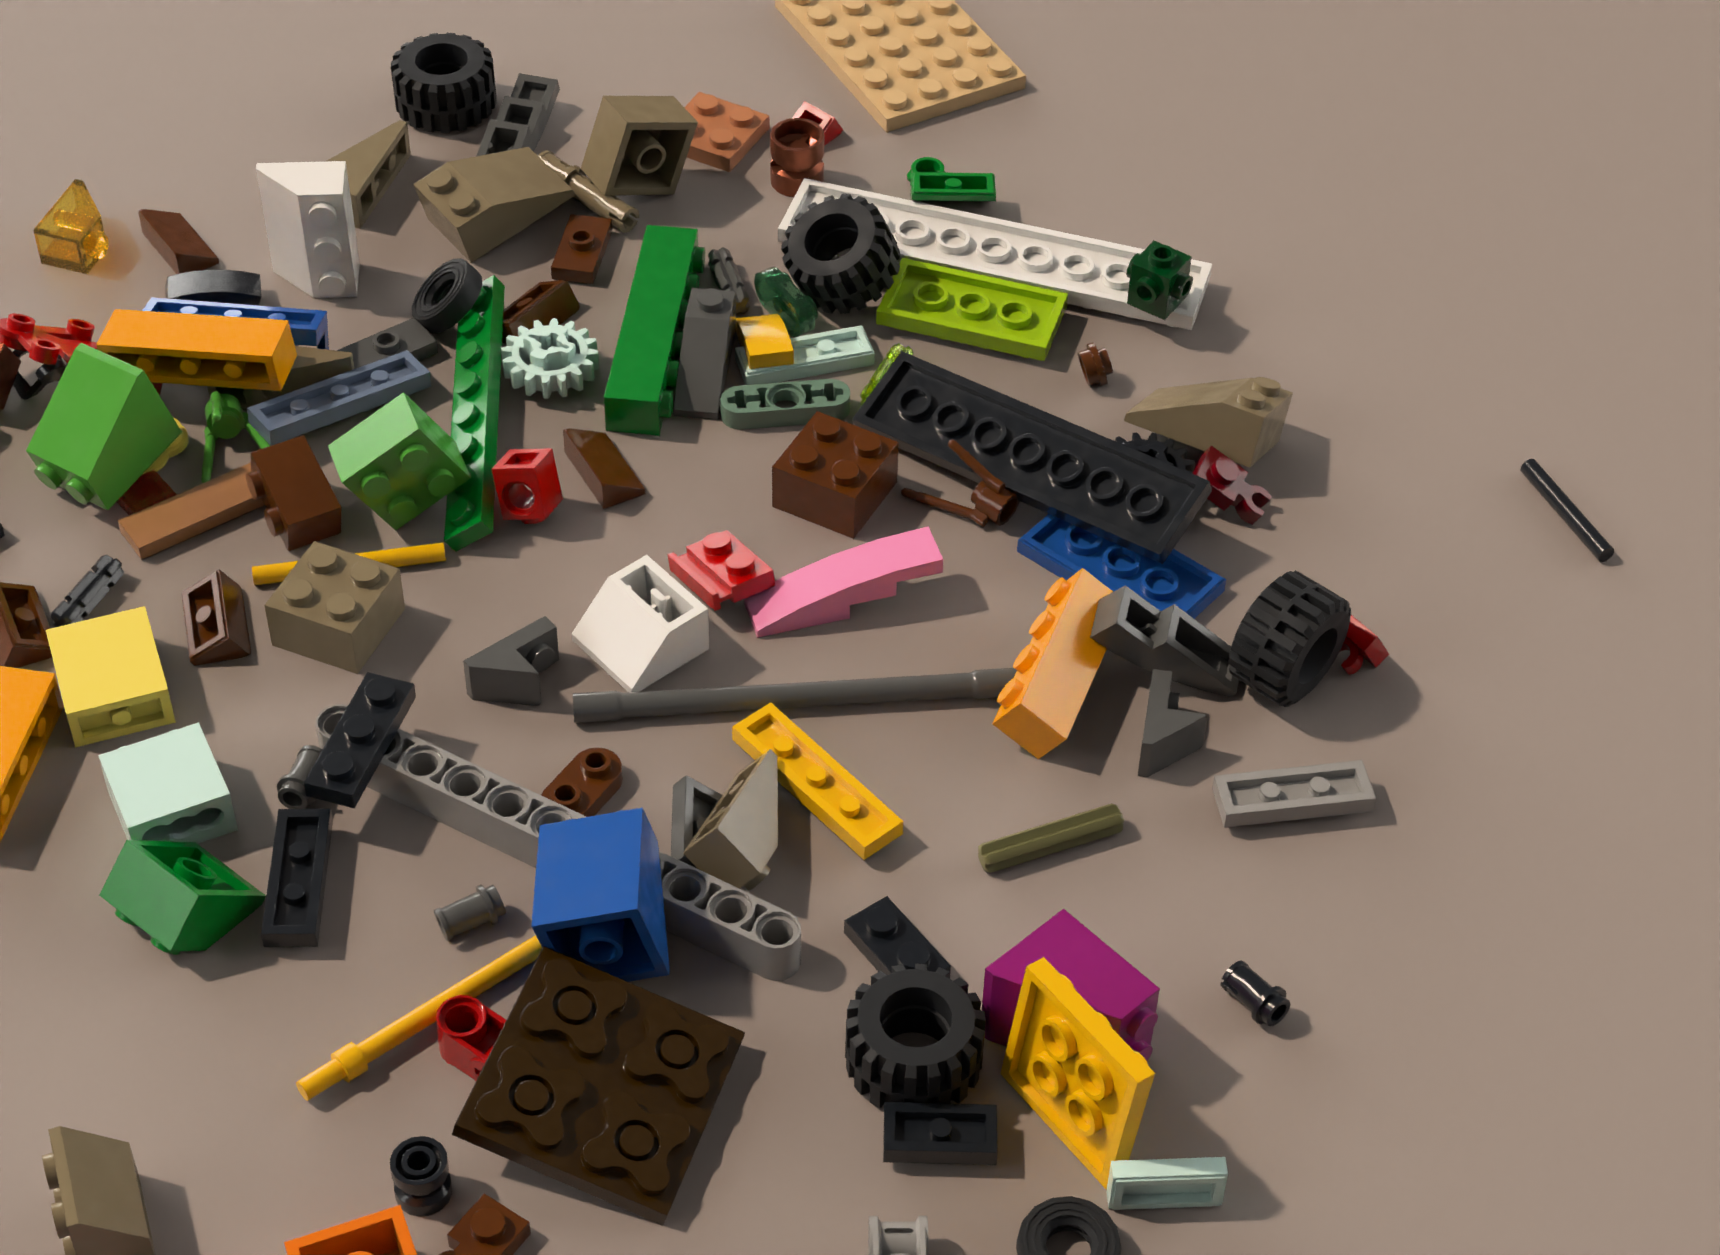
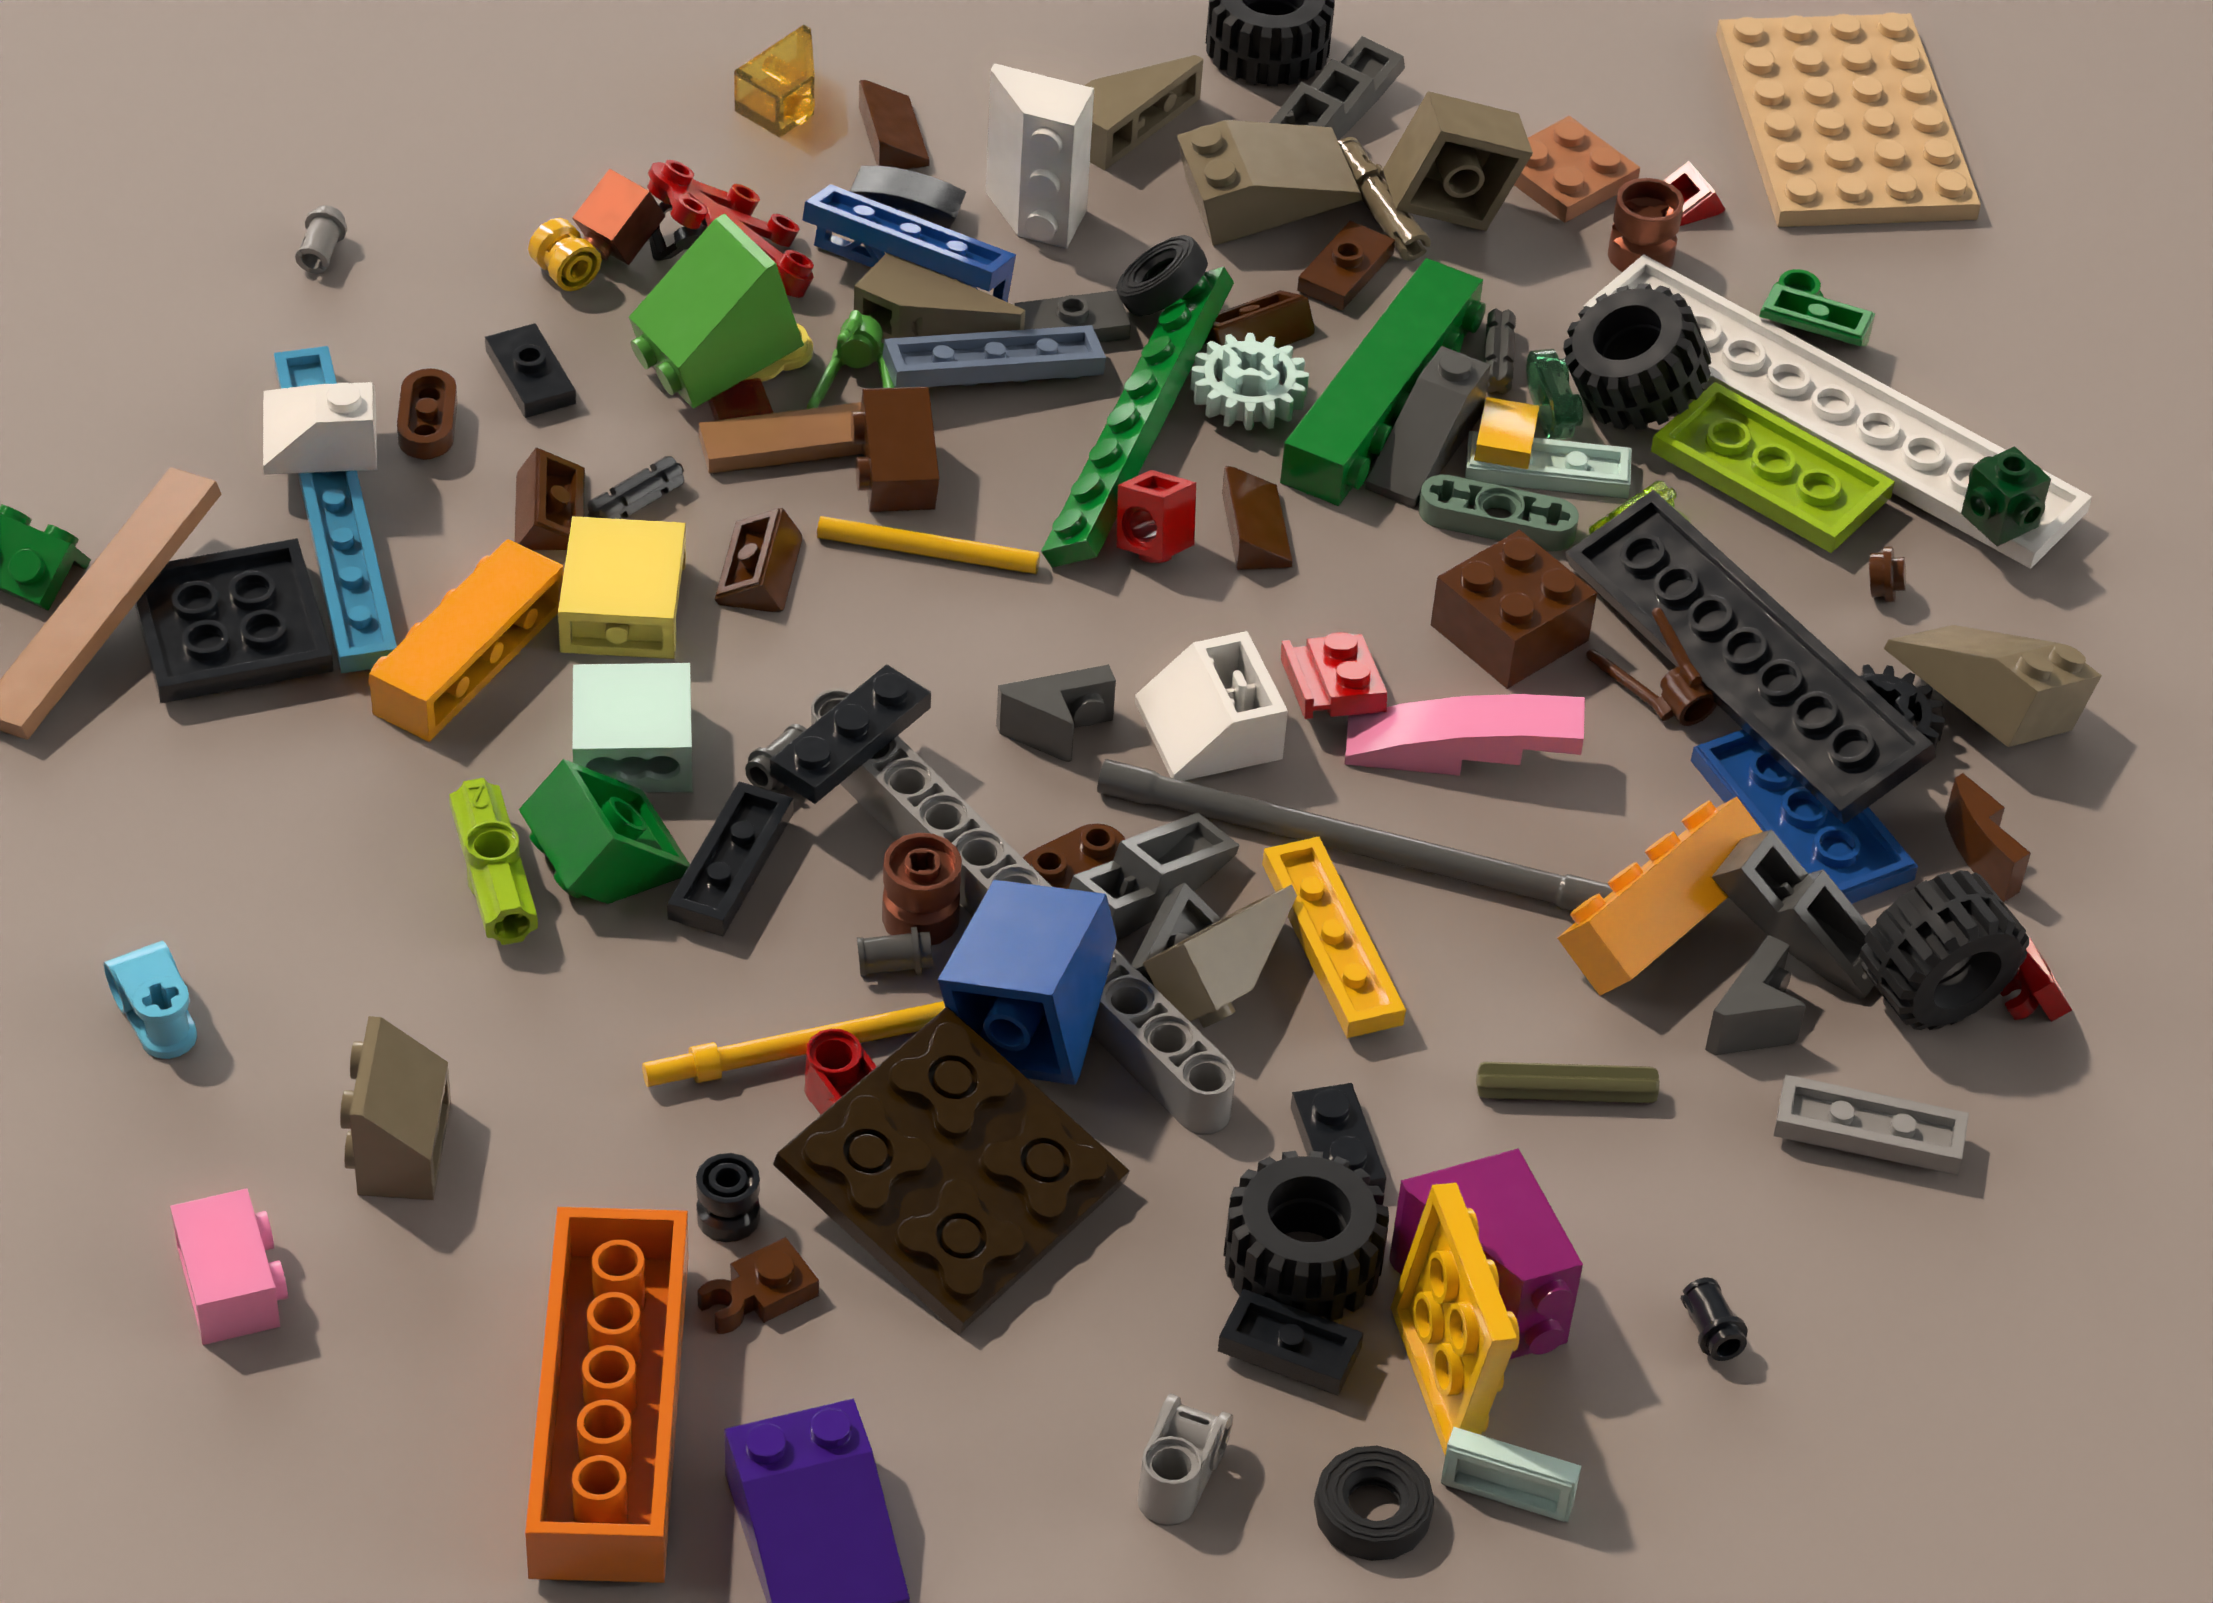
camera: 20 degrees right, 0 degrees up
(94, 947) = (493, 861): none -> lime piece
(202, 348) = (856, 258): light orange brick -> none
(335, 607) = (890, 586): dark tan brick -> none
(399, 461) = (1020, 447): bright green brick -> none
(471, 848) = (922, 886): none -> copper wheel
(652, 768) = (1152, 865): none -> dark grey slope
(1229, 485) = (1970, 749): dark red plate -> none
(1252, 536) = (1987, 849): none -> reddish brown slope

